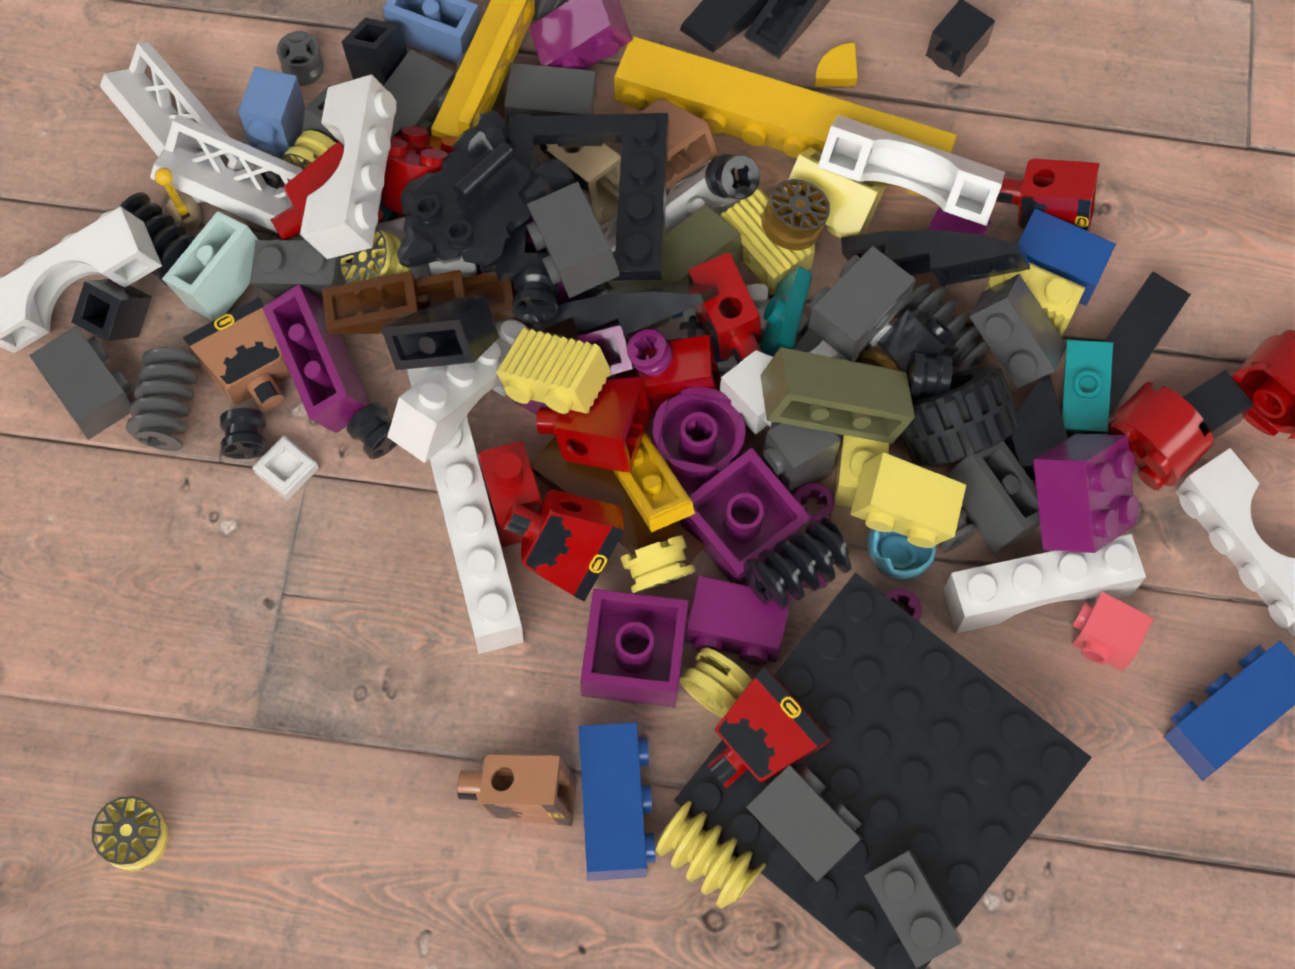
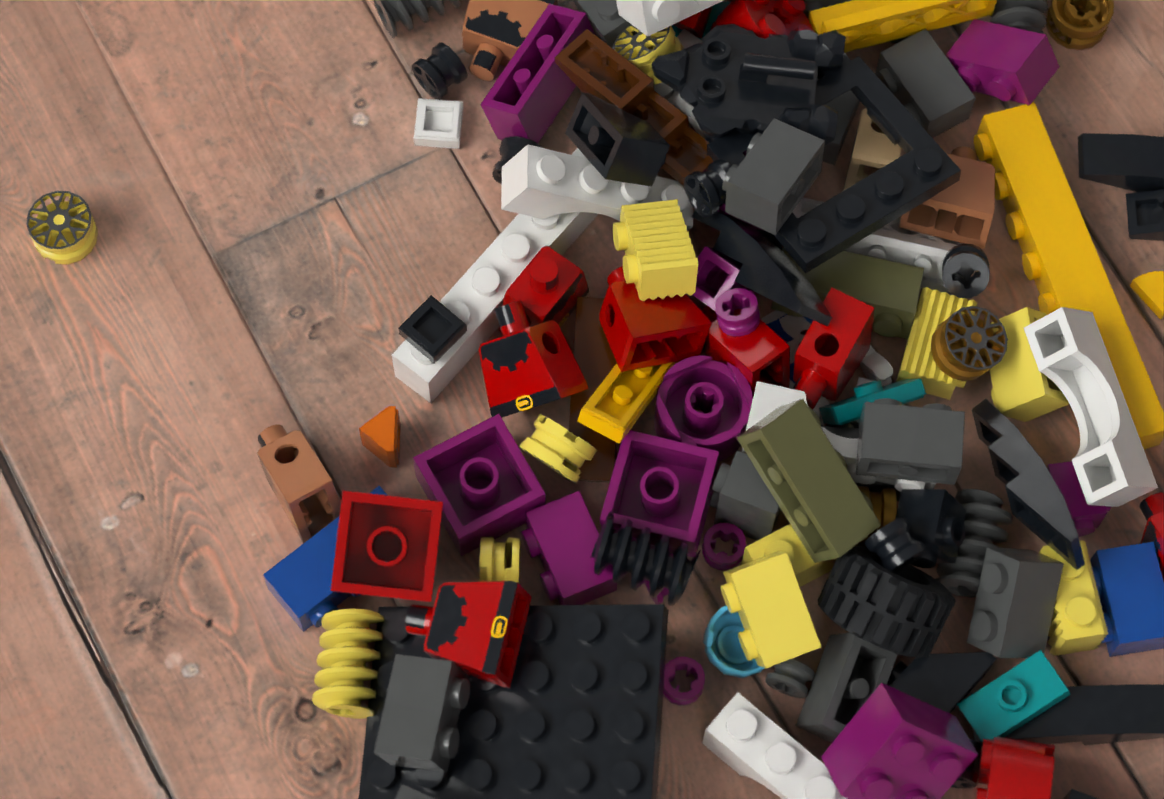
camera: 55 degrees right, 0 degrees up
(483, 588) = (432, 329): none -> black tile
(533, 695) = (382, 436): none -> orange slope
(649, 751) = (387, 546): none -> red brick

